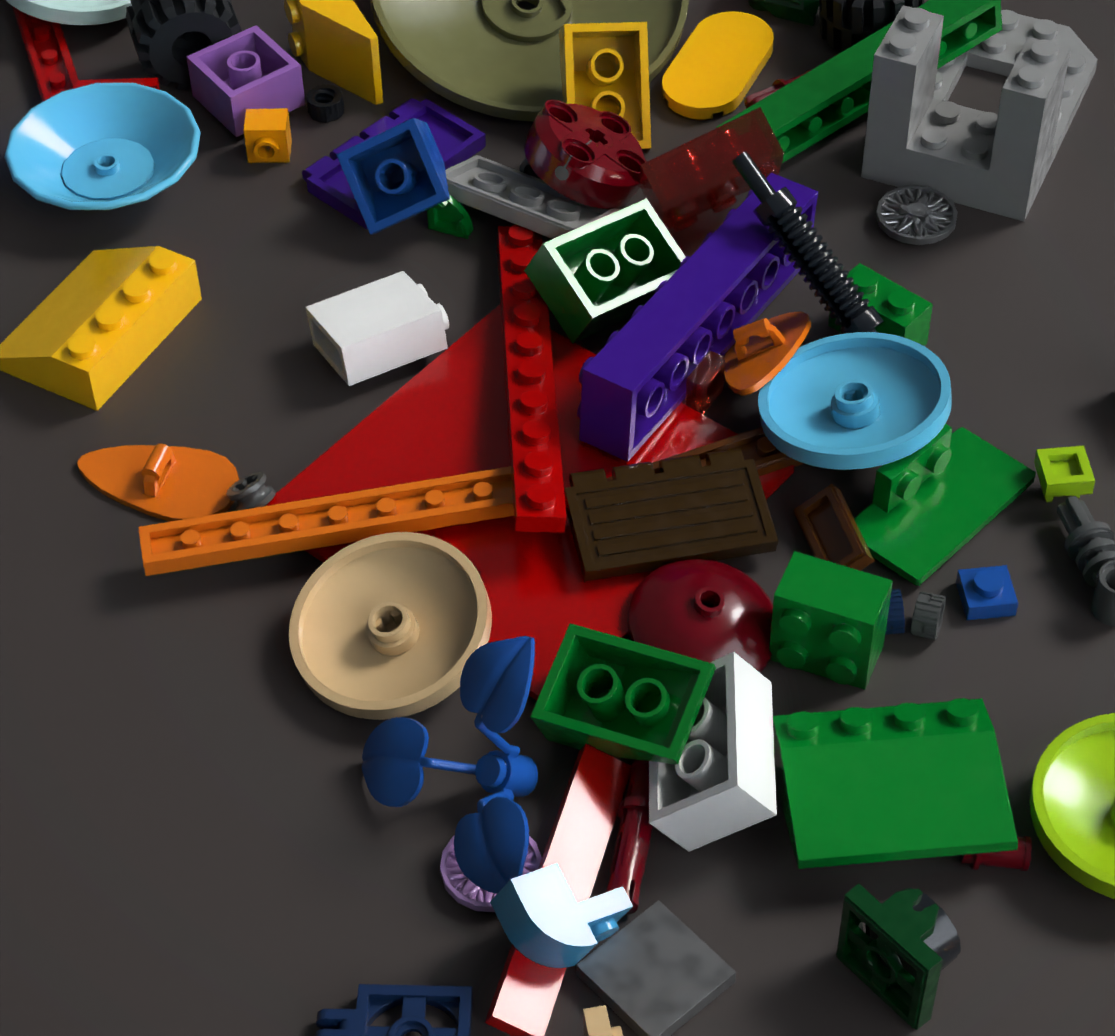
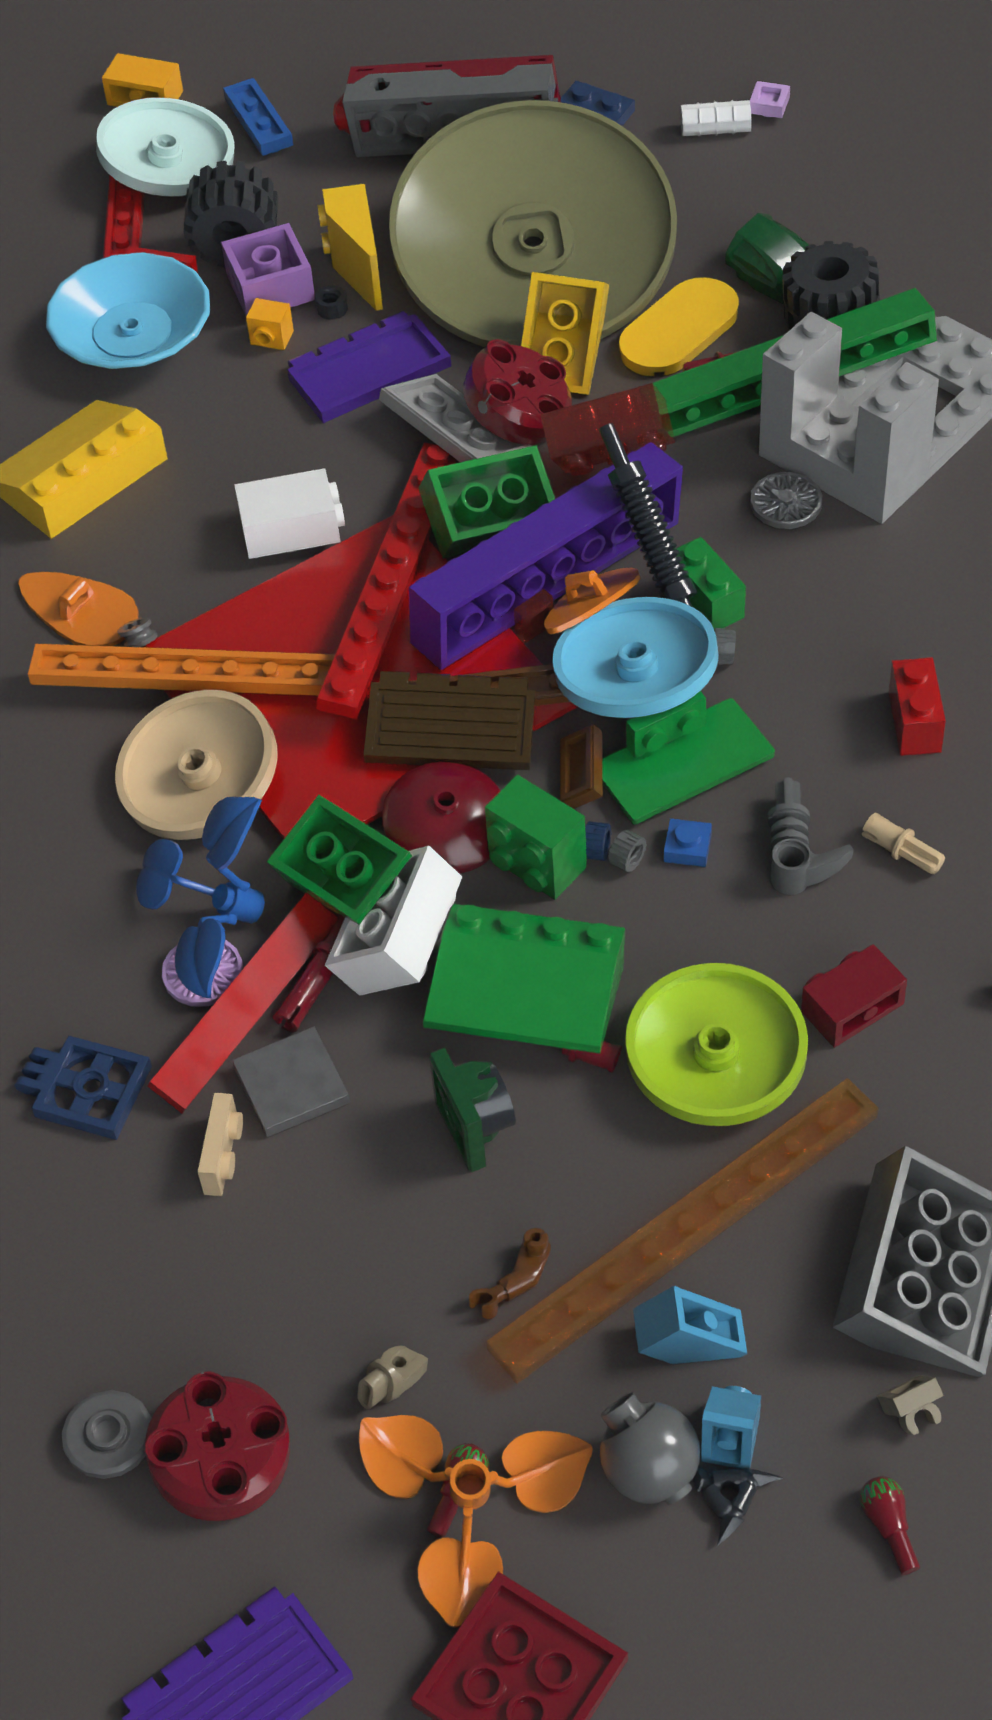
camera: 20 degrees right, 5 degrees up
(395, 174) = (349, 381): blue slope -> none
(450, 218) = (388, 423): green tile -> none
(549, 923) = (215, 1024): brick -> none
(1064, 472) = (793, 755): lime tile -> none

